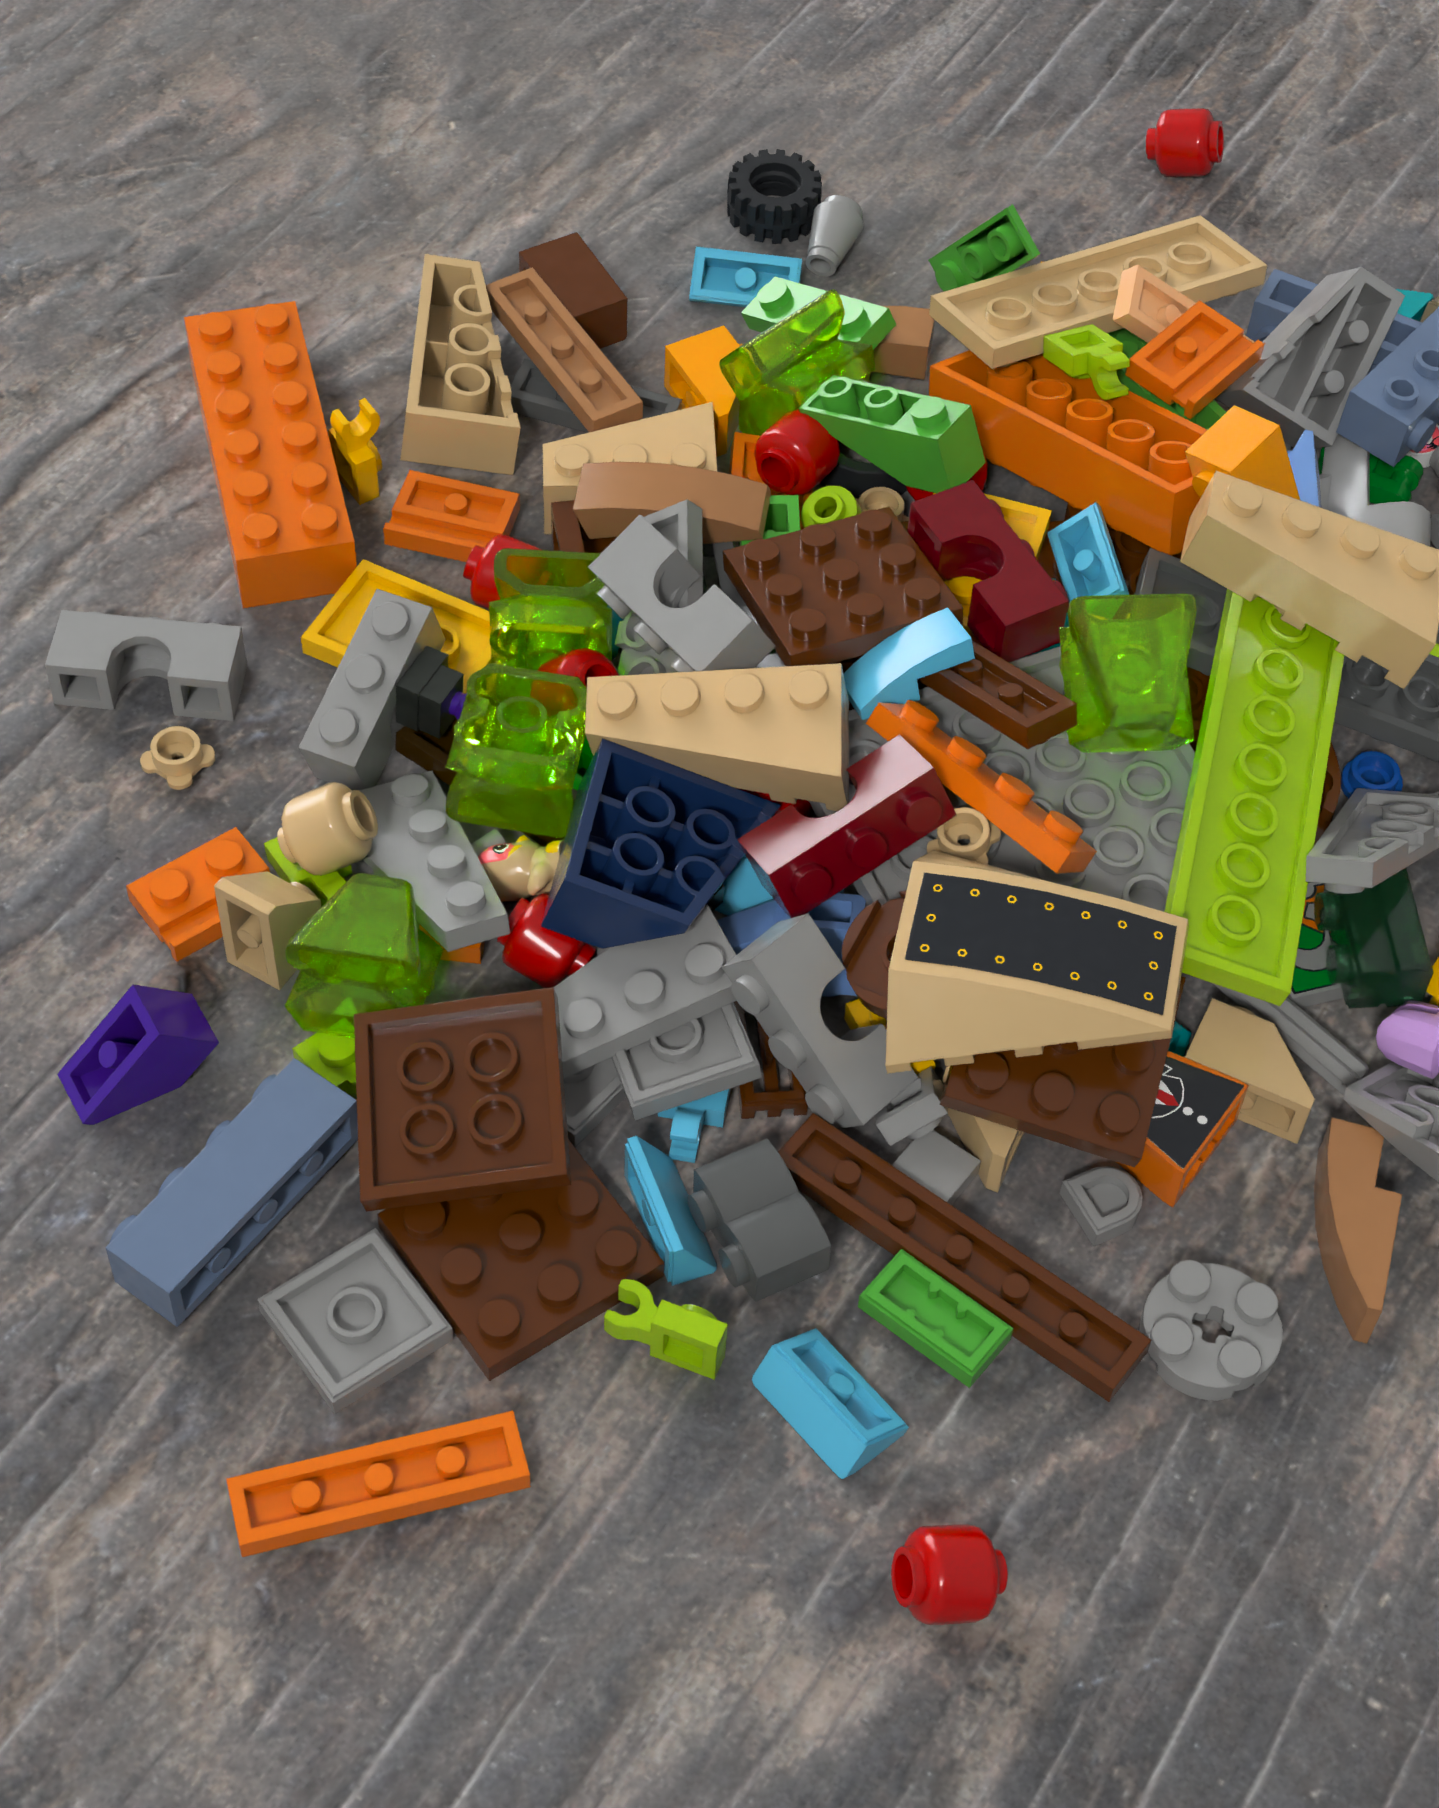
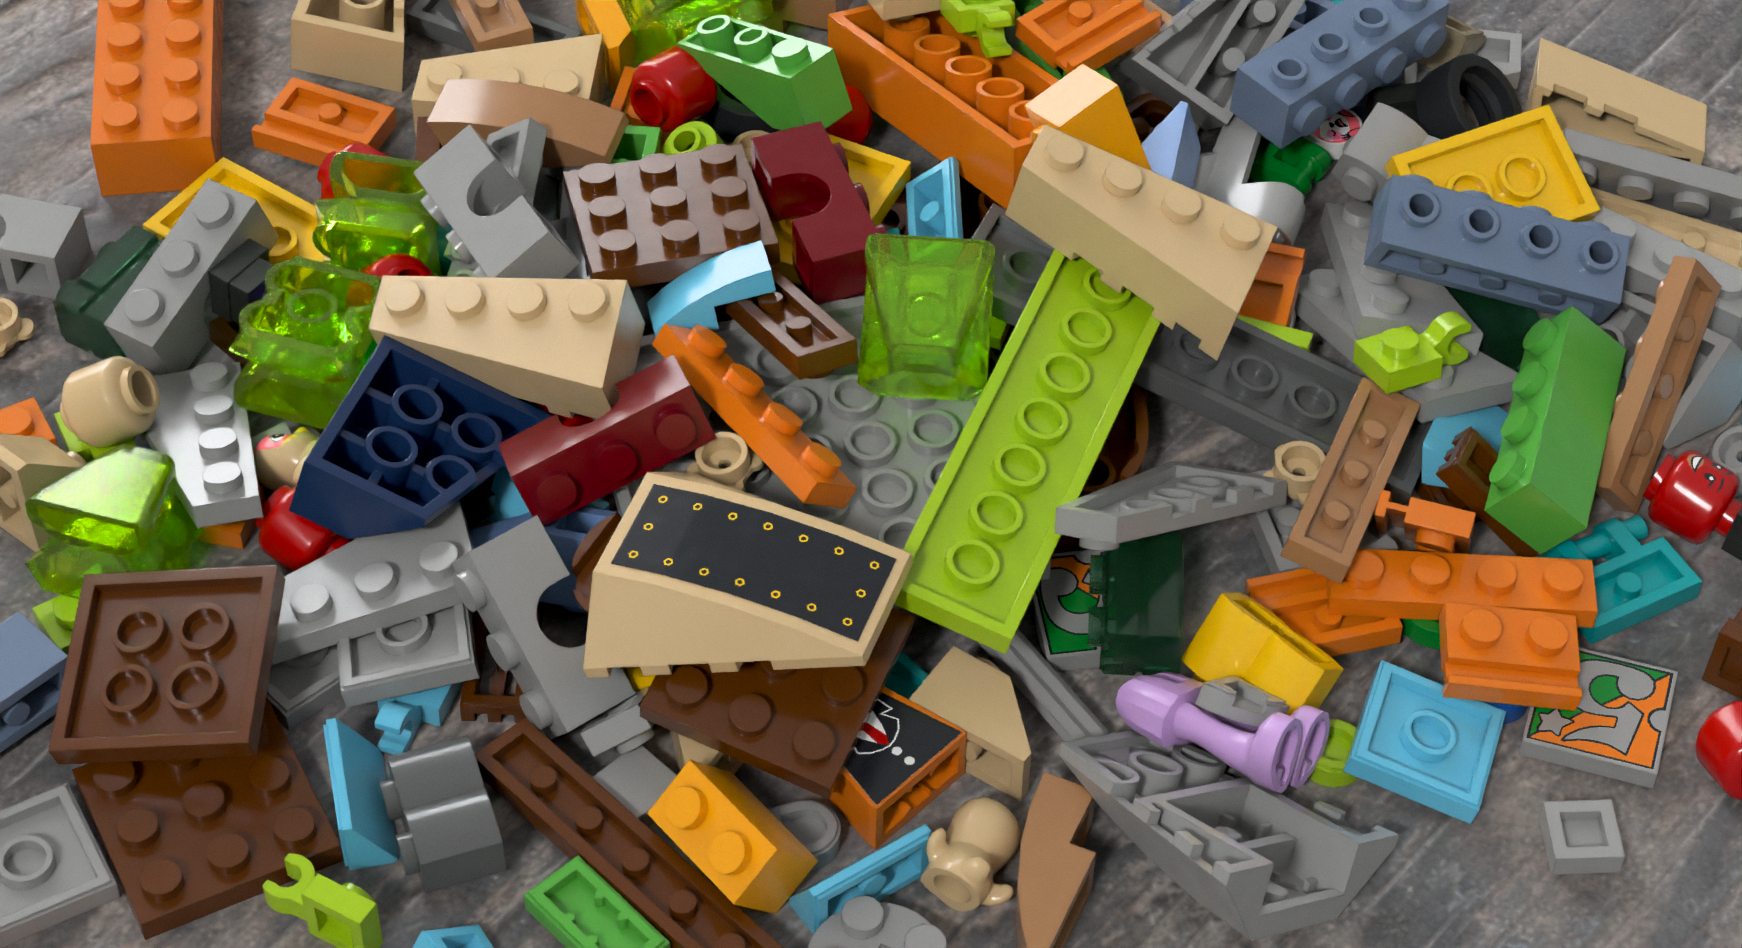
camera: 10 degrees right, 5 degrees down
(284, 709) = (89, 300): none -> clear green brick
(355, 453) = (242, 61): yellow plate -> none
(1049, 1215) = (732, 837): none -> light orange brick
(1174, 1238) = (872, 875): none -> medium azure slope
(1275, 1207) = (969, 855): none -> tan animal
(1371, 771) = (1193, 447): blue plate -> none

